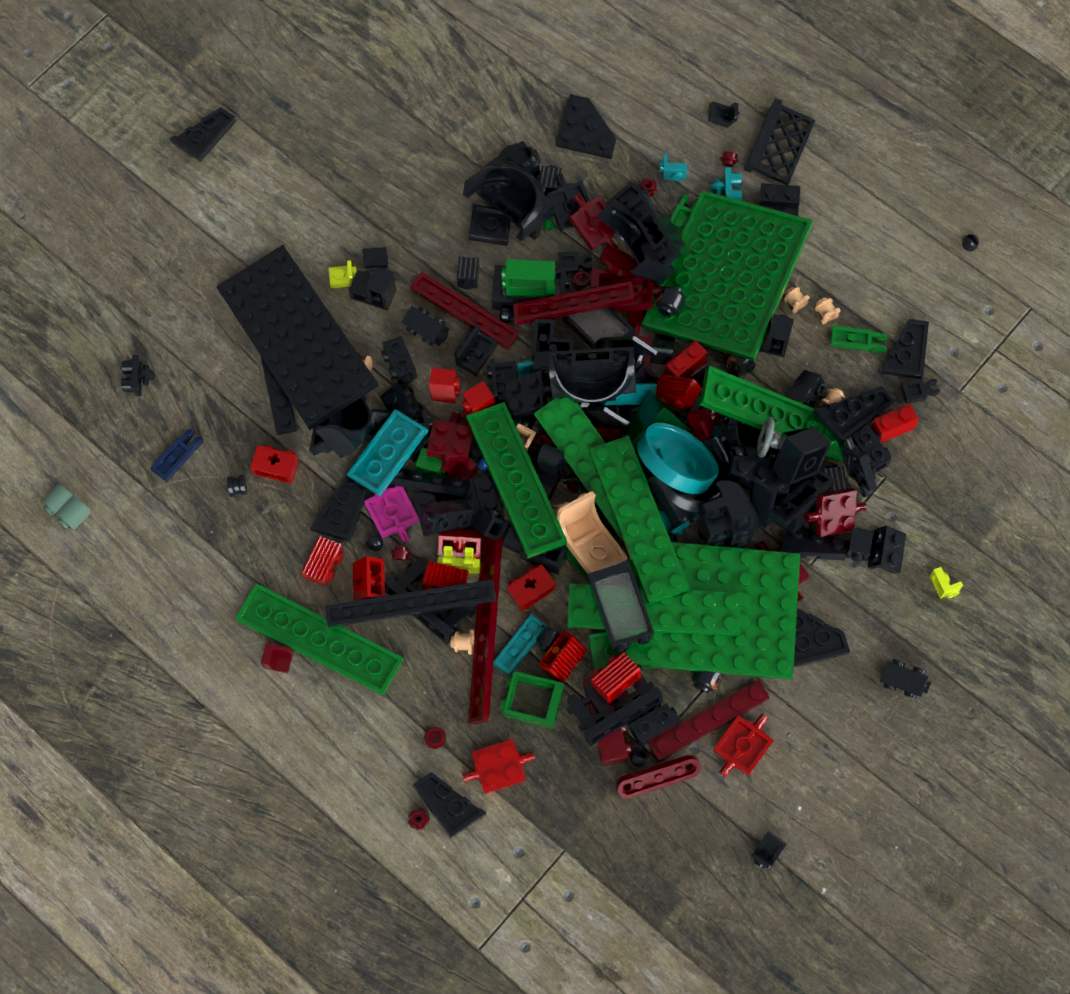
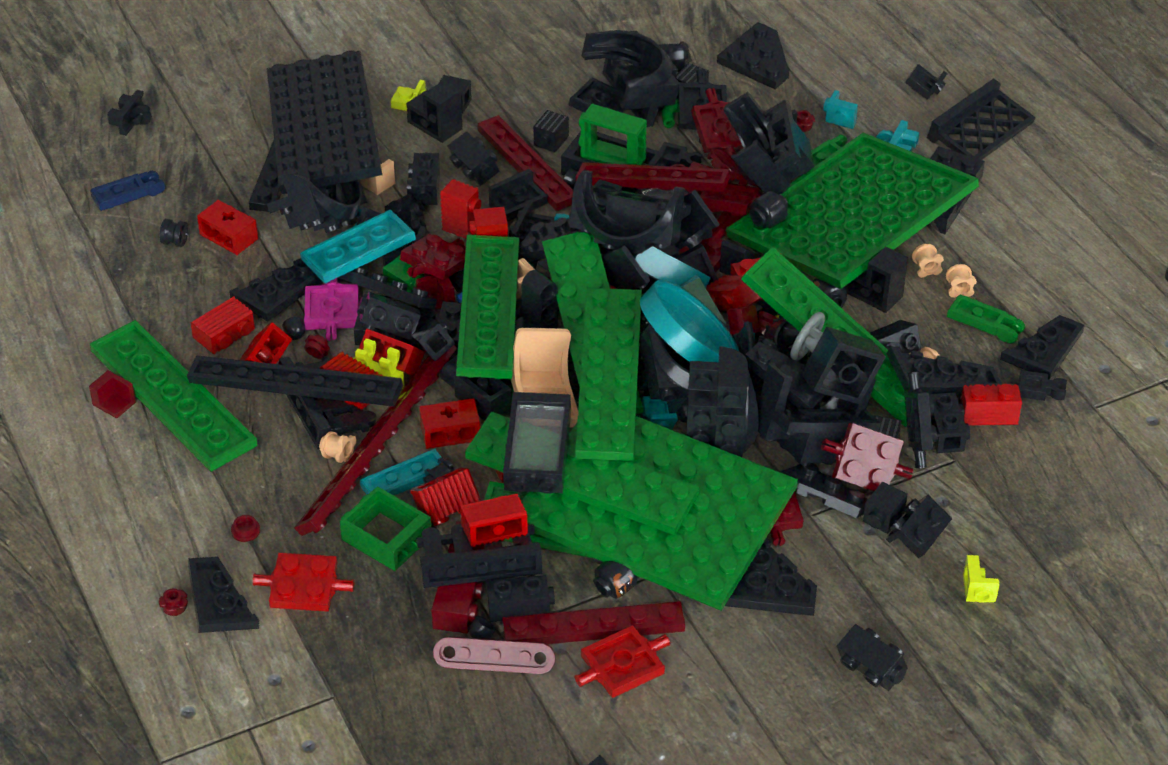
camera: 20 degrees right, 25 degrees down
(729, 158) = (915, 120): dark red plate -> none

